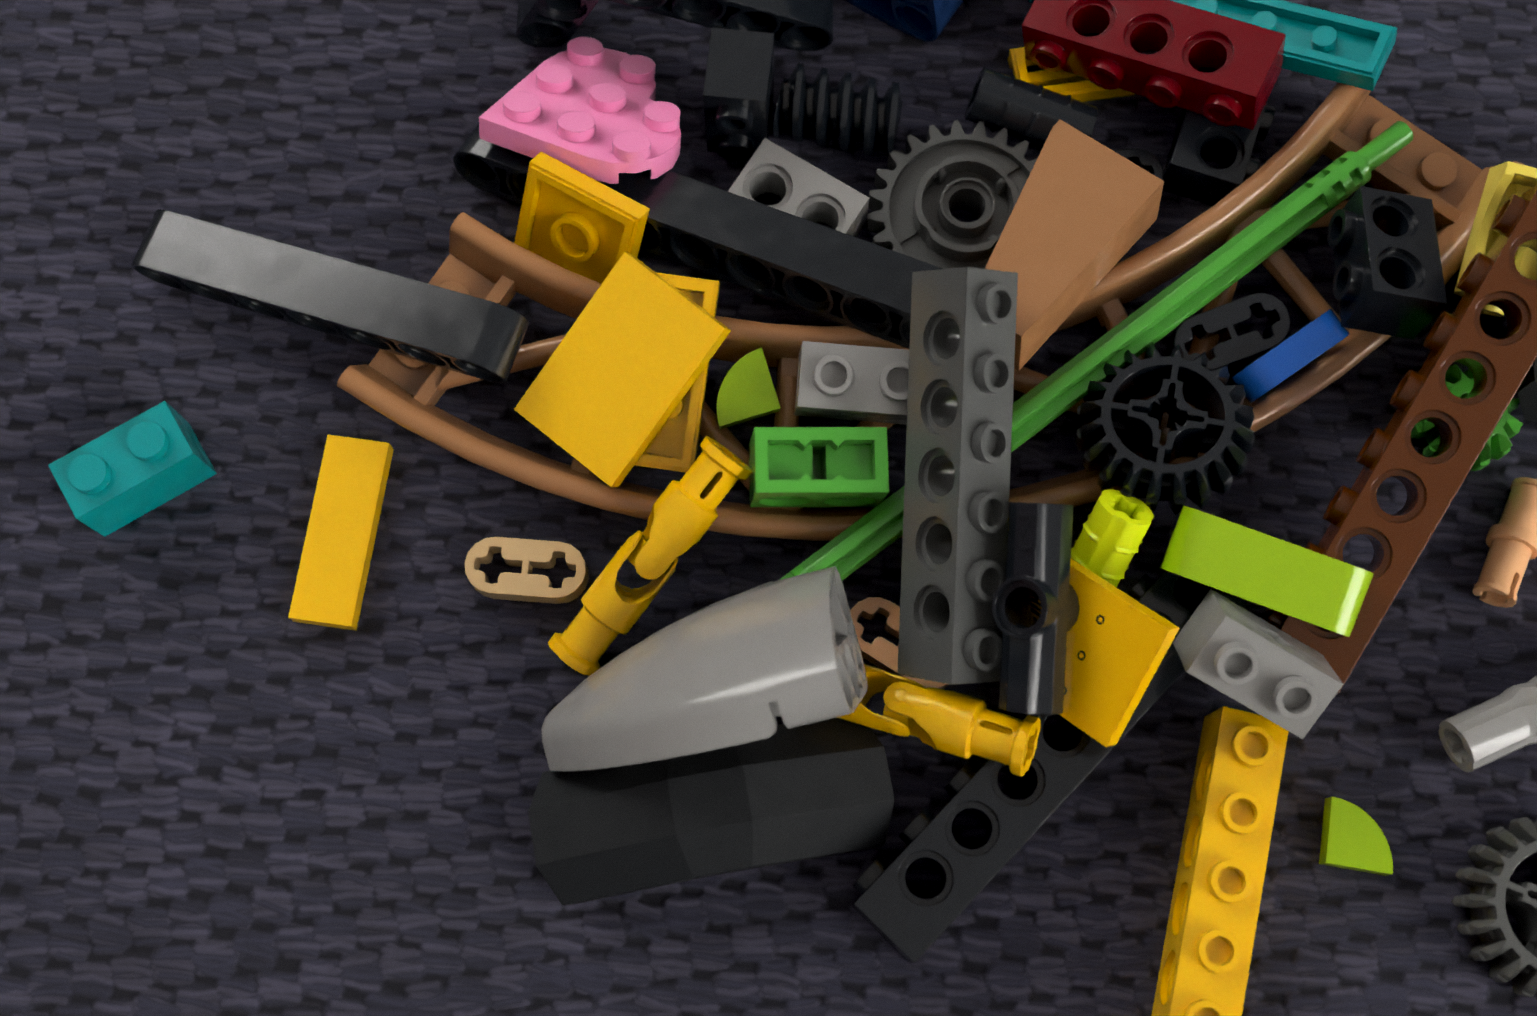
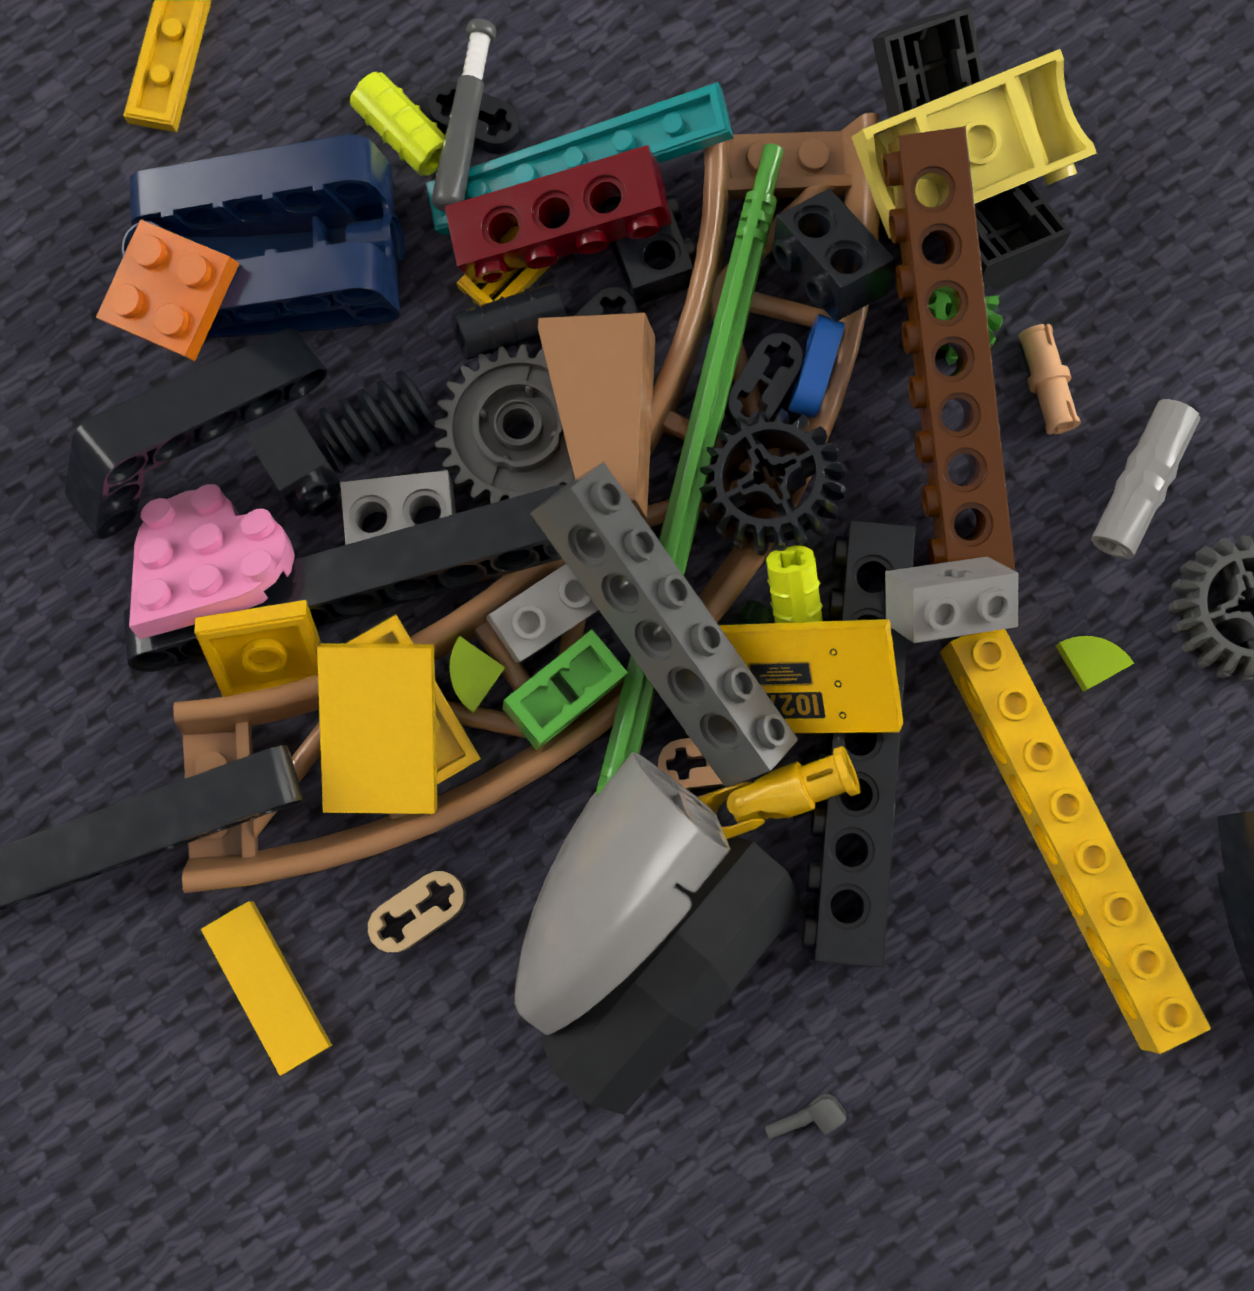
camera: 35 degrees left, 5 degrees up
(132, 469) = (83, 1063): teal brick -> none
(672, 528) = (499, 807): yellow piece -> none
(1031, 648) = (768, 648): black piece -> none
(1267, 570) = (912, 531): lime beam -> none

